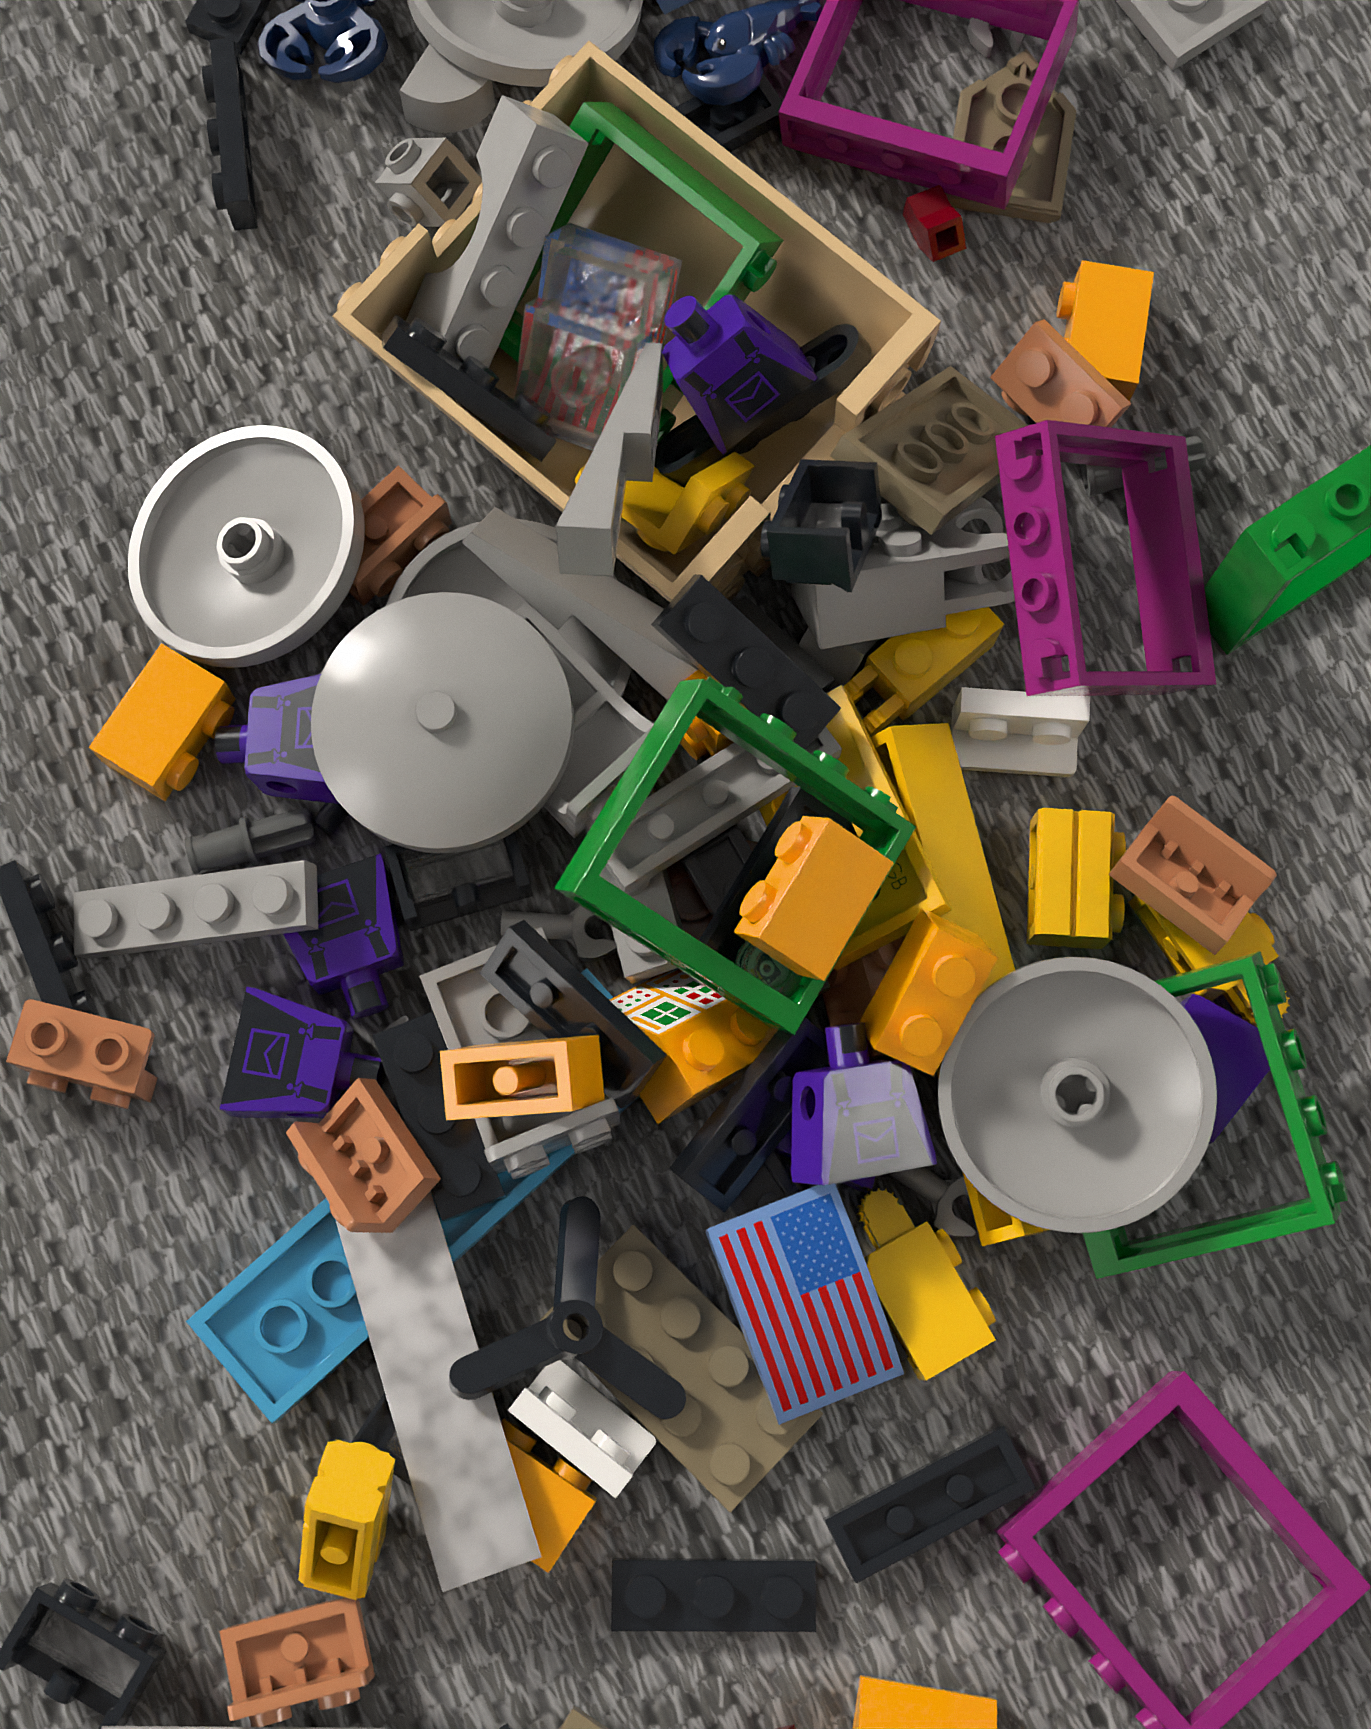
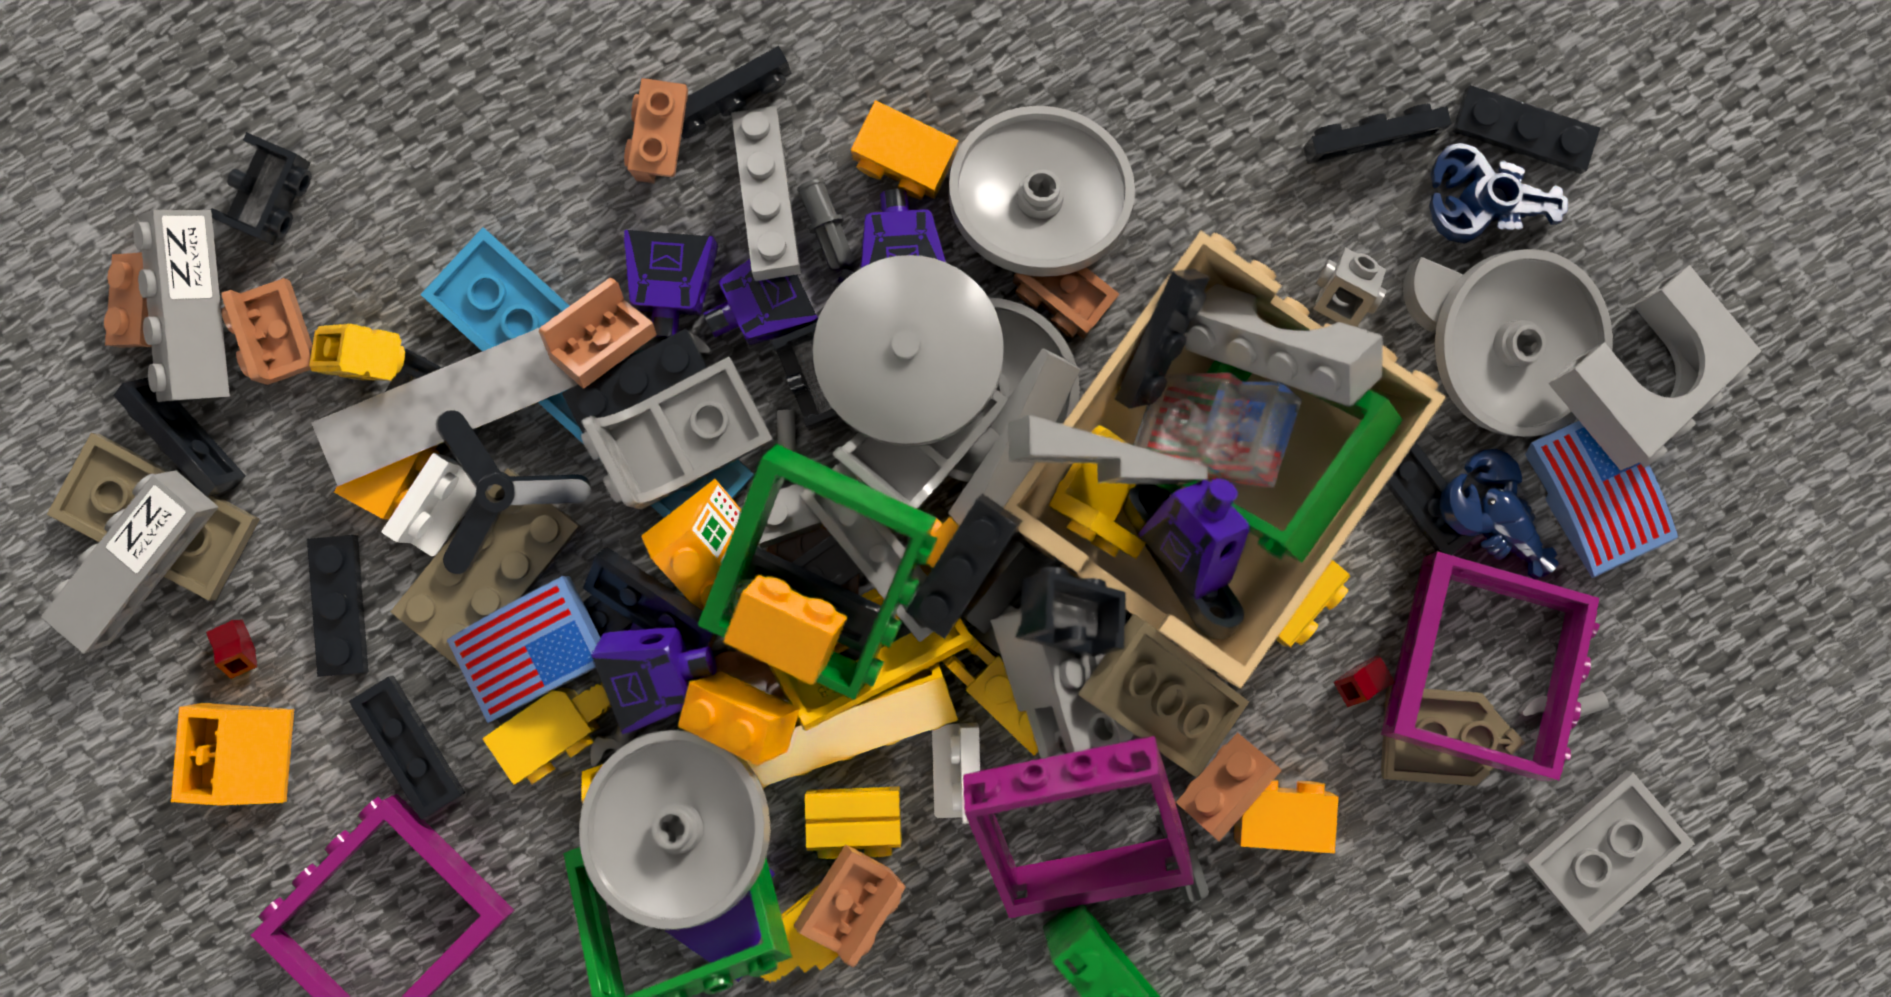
camera: 90 degrees right, 10 degrees up
(522, 1077) = (648, 437): light orange brick -> none
(569, 1005) = (703, 467): black plate -> none

